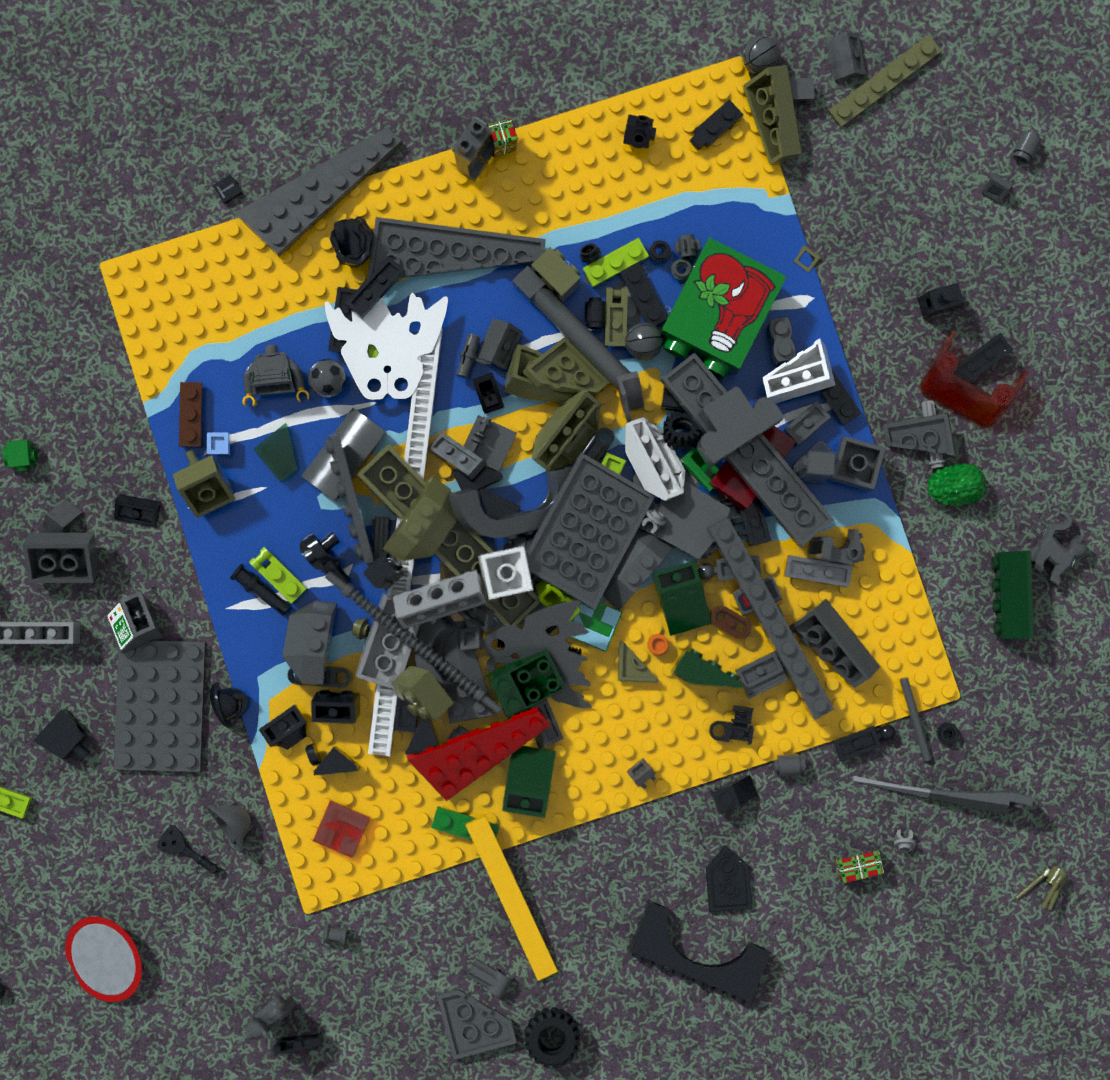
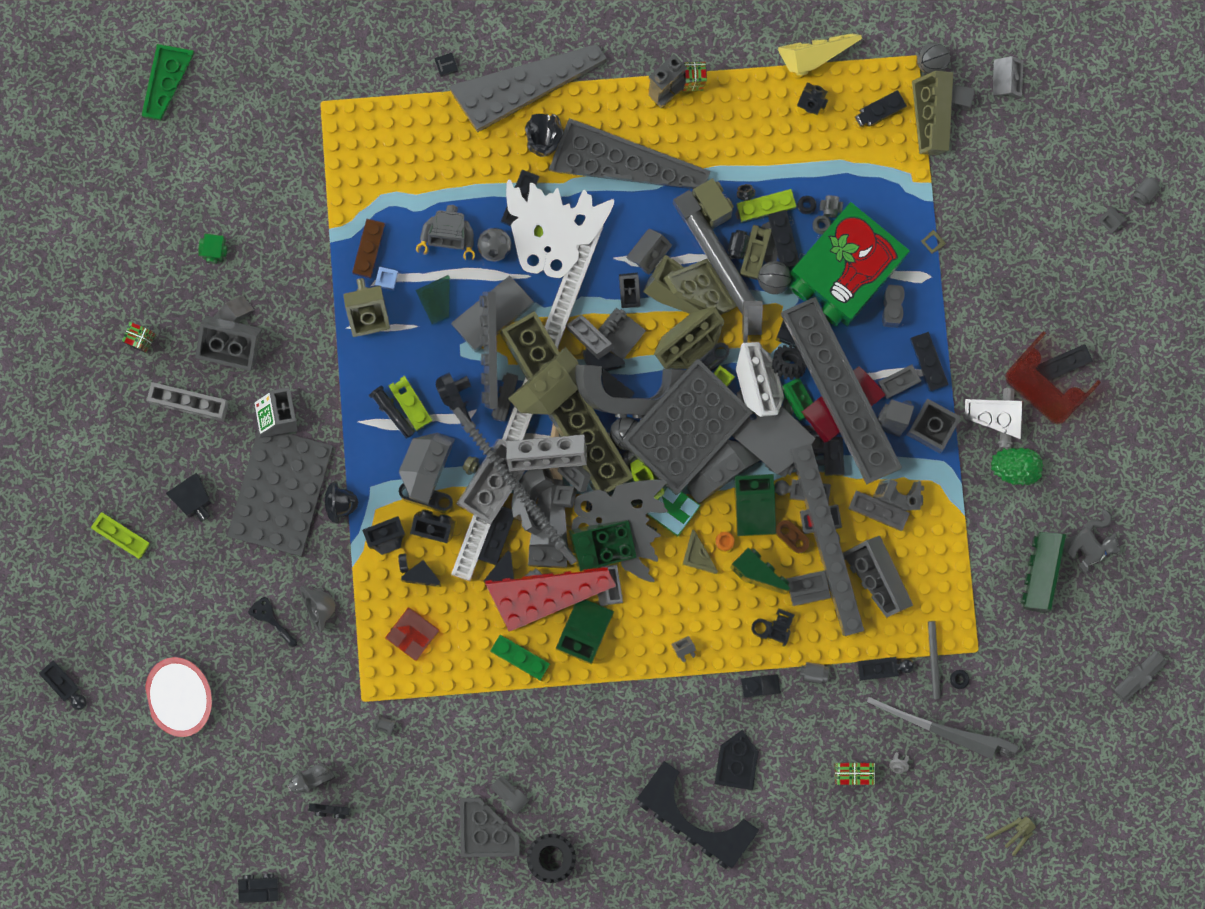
camera: 10 degrees right, 5 degrees down
(137, 510) = (301, 319): black slope -> none
(375, 287) = (554, 177): black plate -> none
(384, 572) = (504, 420): black brick -> none
(422, 693) = (511, 530): olive brick -> none
(468, 356) = (619, 255): dark grey pin -> none
(505, 572) = (608, 443): white slope -> none
(511, 897) = (545, 728): yellow tile -> none
(621, 86) = (806, 57): none -> light yellow wedge
(656, 518) = (749, 431): light grey plate -> none
(734, 423) = (835, 364): dark grey brick -> none
(801, 375) = (902, 339): white wedge -> none
(884, 81) = (1036, 106): olive plate -> none
(942, 300) = (1041, 304): black torso -> none

